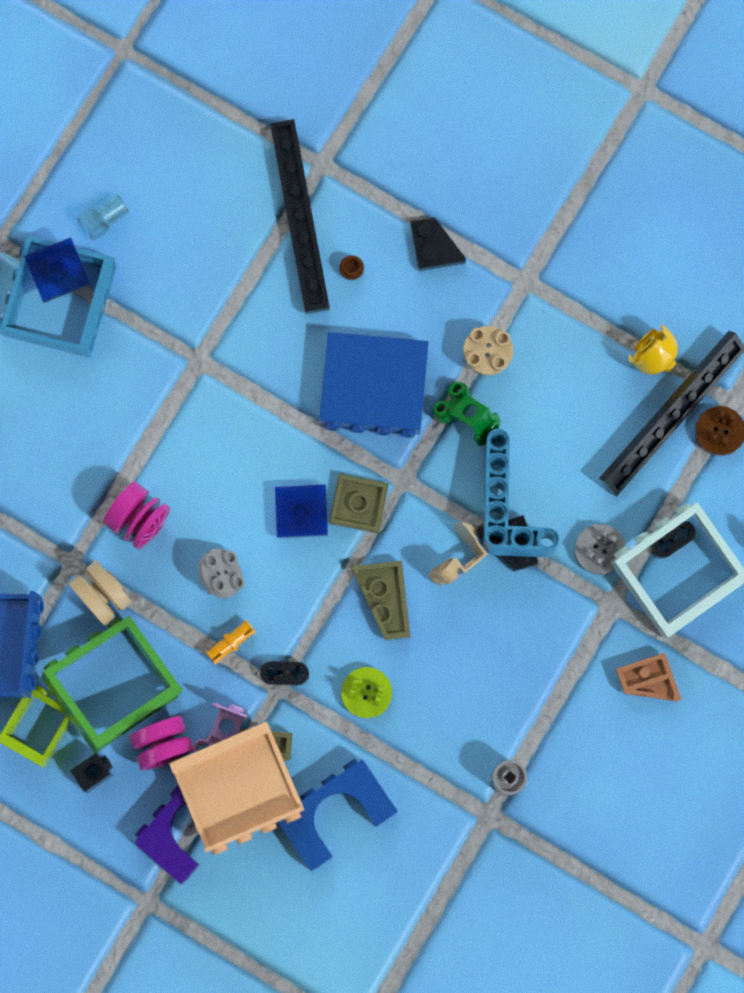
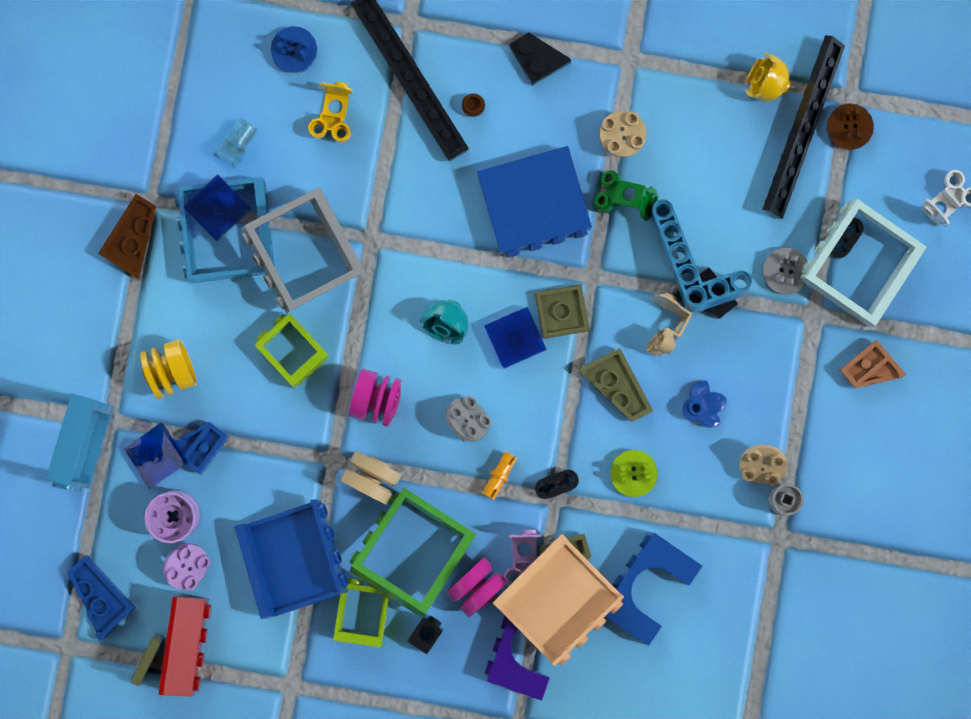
camera: 20 degrees left, 5 degrees up
(85, 460) = (306, 369): none -> lime window
(164, 339) = (335, 233): none -> light grey window
(203, 228) = (332, 121): none -> yellow piece
(205, 155) = (283, 46): none -> blue plate
(237, 467) = (445, 320): none -> teal cylinder
(468, 651) = (707, 403): none -> blue plate
(509, 740) = (763, 464): none -> tan plate

